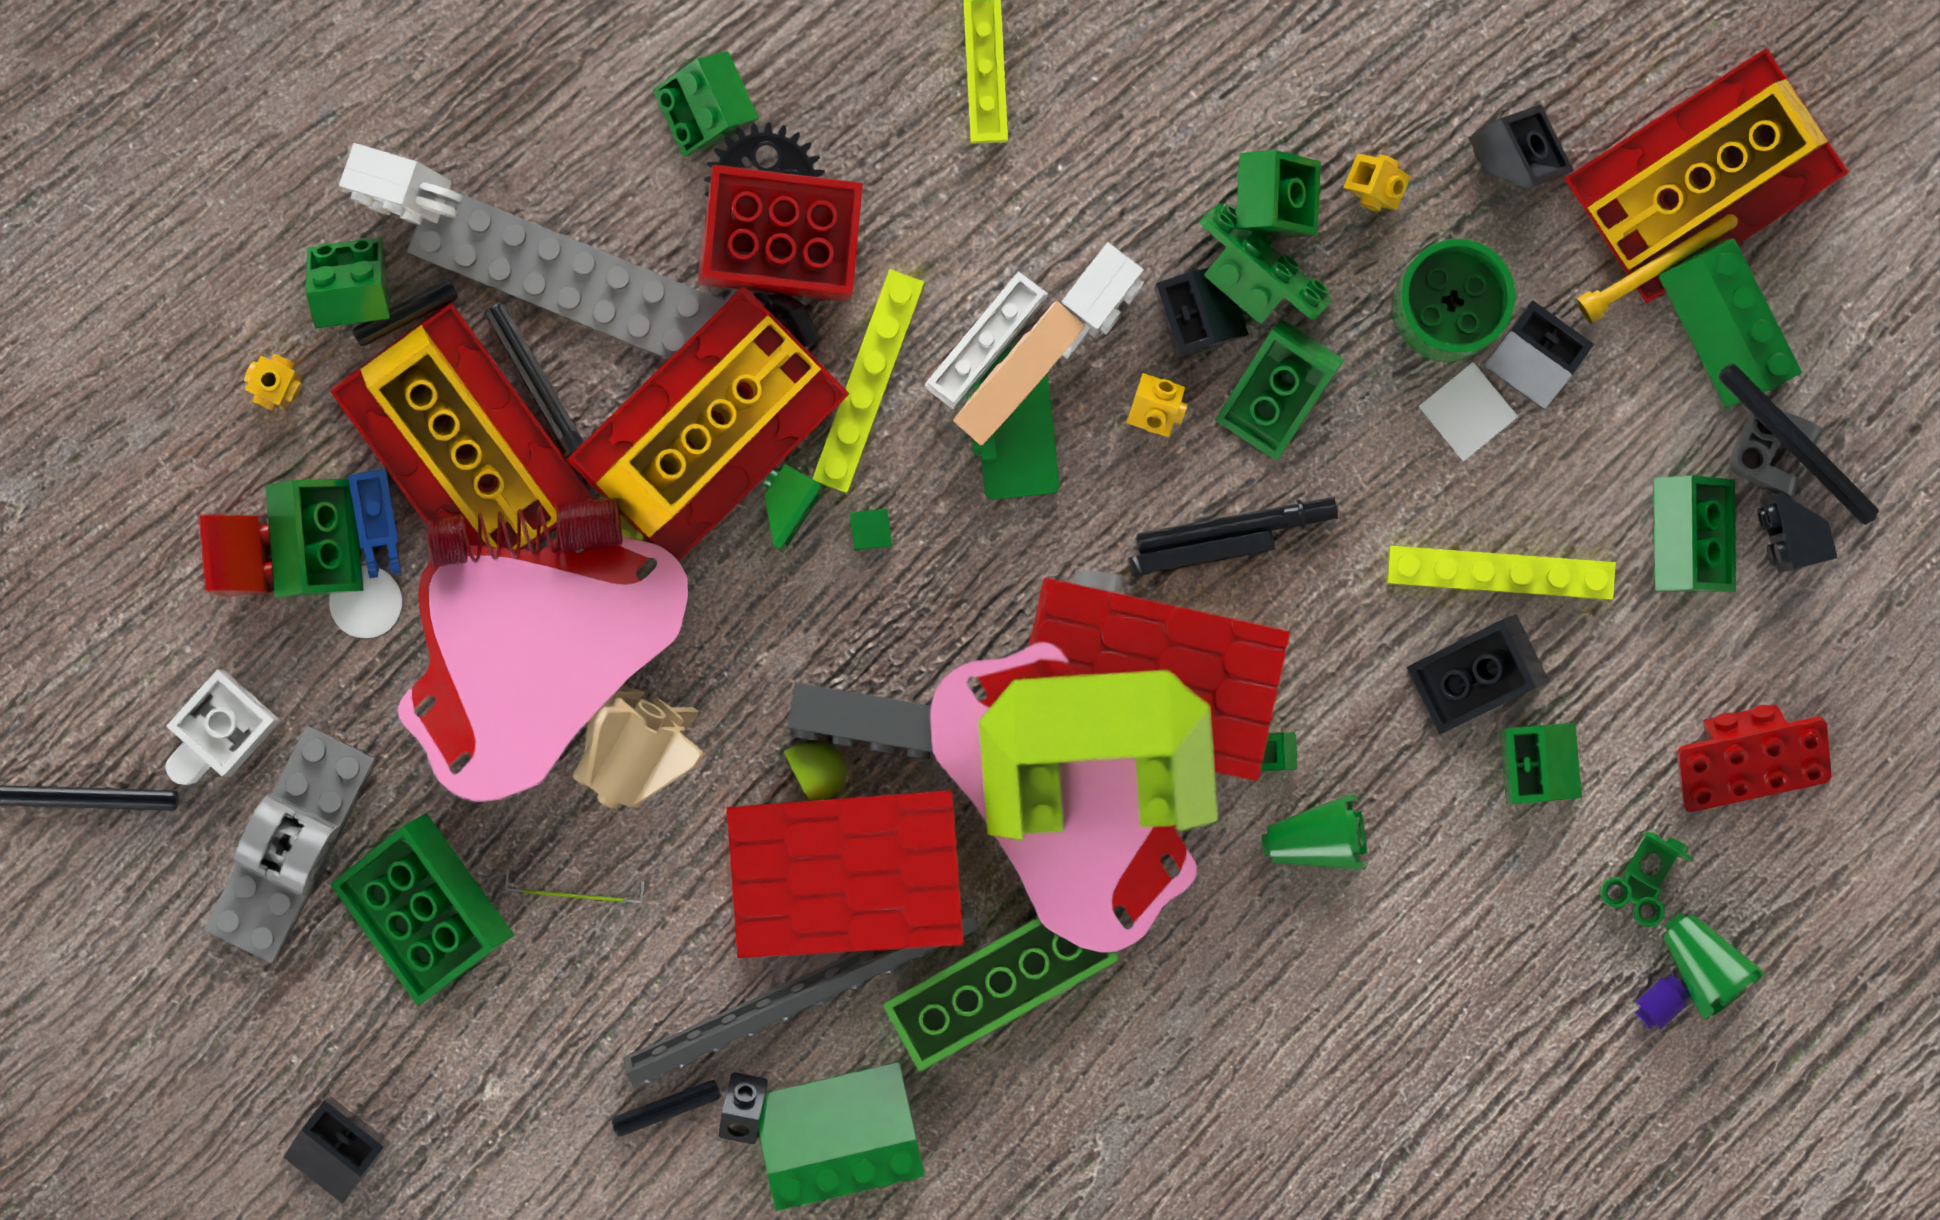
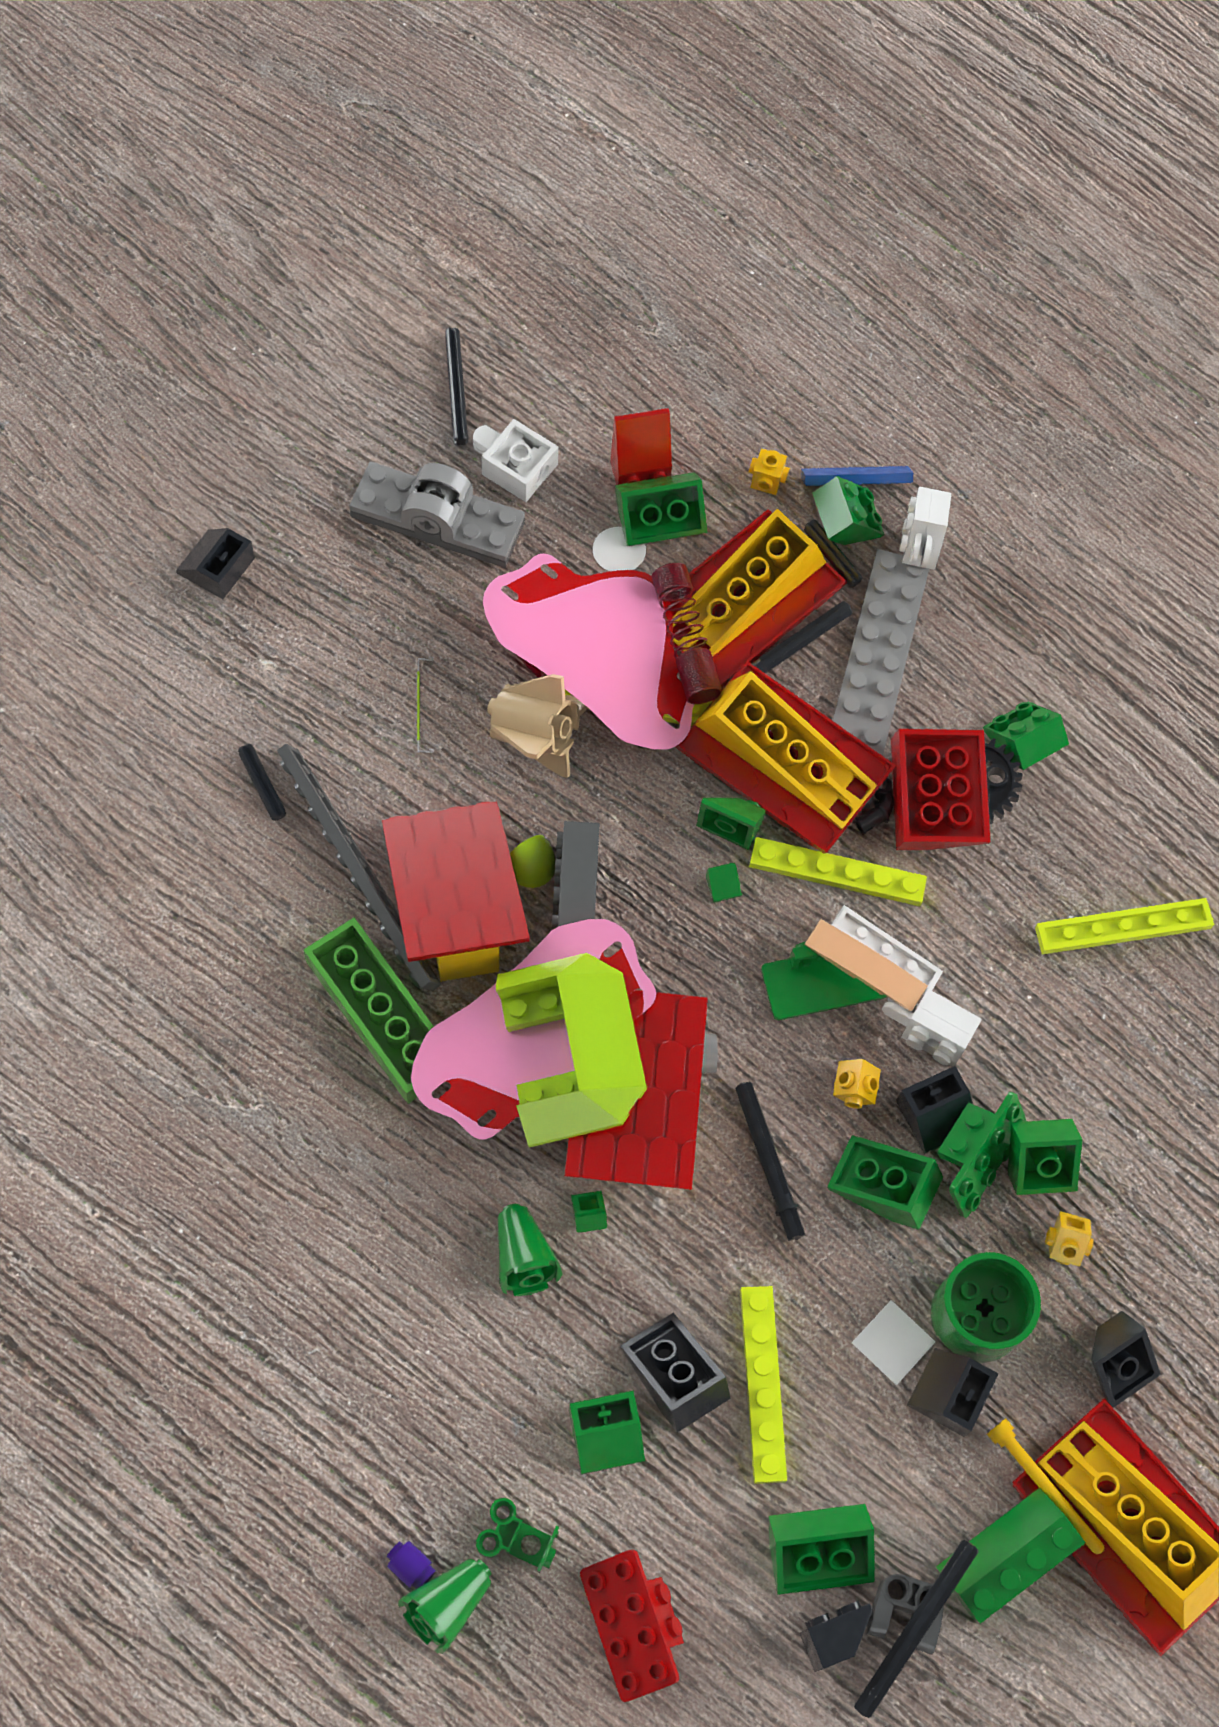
camera: 80 degrees right, 20 degrees down
(289, 261) = (858, 475): none -> blue tile
(375, 517) = (679, 546): blue hinge -> none
(422, 909) = (399, 602): green slope -> none
(743, 1107) = (267, 833): black bracket -> none
(839, 1136) = (247, 905): slope -> none
(1201, 553) = (743, 1134): black beam -> none

